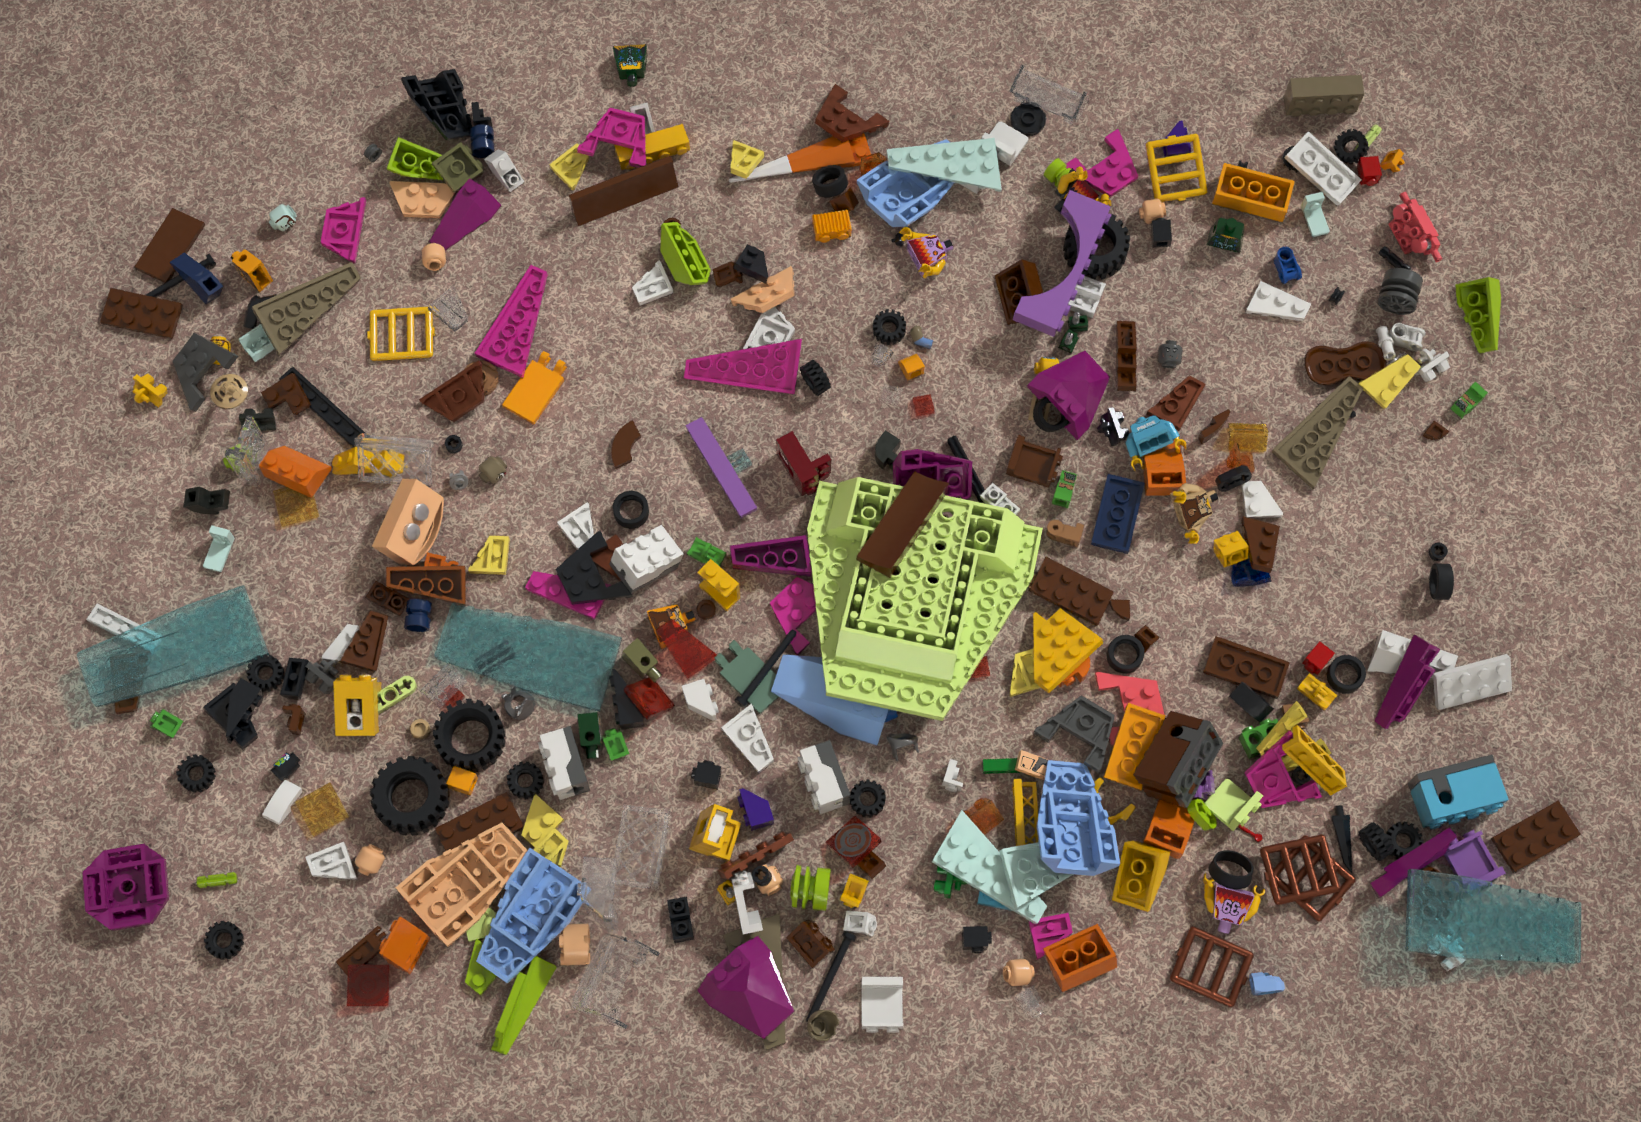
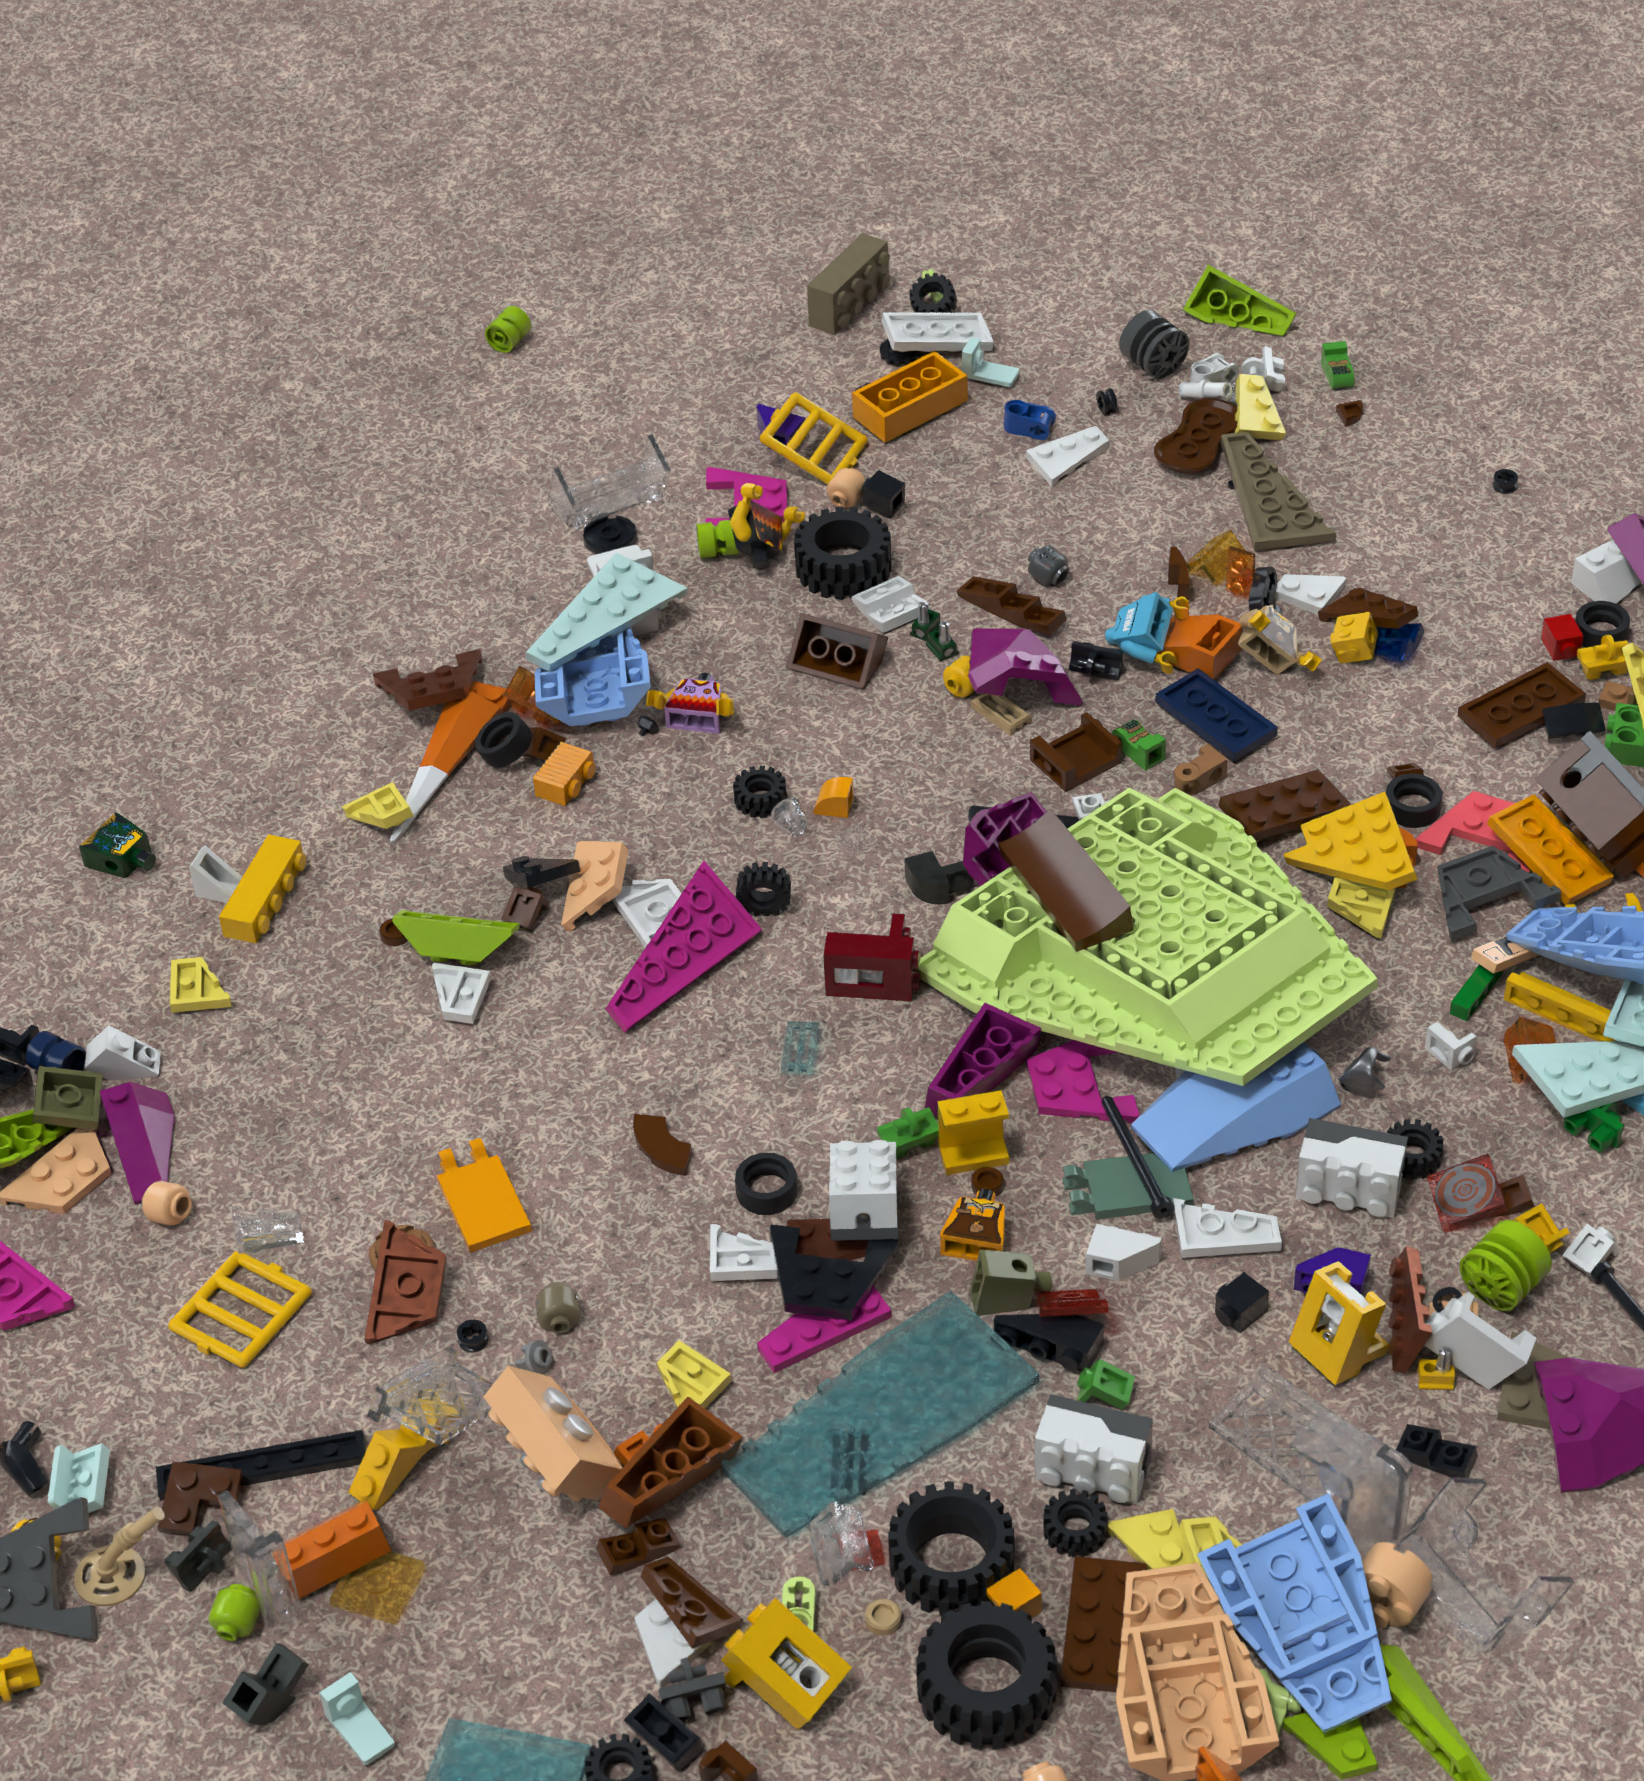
camera: 50 degrees left, 25 degrees down
(296, 310) = (81, 1395): dark tan wing -> none
(417, 617) = (703, 1514): dark blue wheel -> none
(512, 332) = (366, 1168): dark pink wing -> none
(524, 710) = (965, 1469): flat silver piece -> none
(590, 725) = (1064, 1381): dark green torso -> none
(619, 129) = (215, 890): dark pink wing -> none
(623, 191) = (295, 945): reddish brown arch -> none
(685, 649) = (1030, 1223): clear red wing -> none
(721, 467) = (797, 1053): medium lavender tile -> none
(810, 943) = (1583, 1319): reddish brown bracket -> none
(918, 338) = (801, 774): arm -> none
(923, 405) = (898, 817): clear red tile -> none
(1041, 422) = (1023, 712): black tyre -> none
(1047, 309) = (814, 526): medium lavender arch -> none
(1121, 608) = (1347, 775): reddish brown tile -> none
(1179, 402) = (1114, 588): copper wing -> none
(1226, 235) = (941, 442): dark green torso -> none
(1369, 170) = (976, 299): red brick -> none
(1392, 159) = (981, 280): light orange tile -> none
(1393, 259) = (1100, 340): black axle -> none
(1414, 229) = (1085, 300): coral piece -> none
(1441, 581) = (1540, 498): black tyre -> none

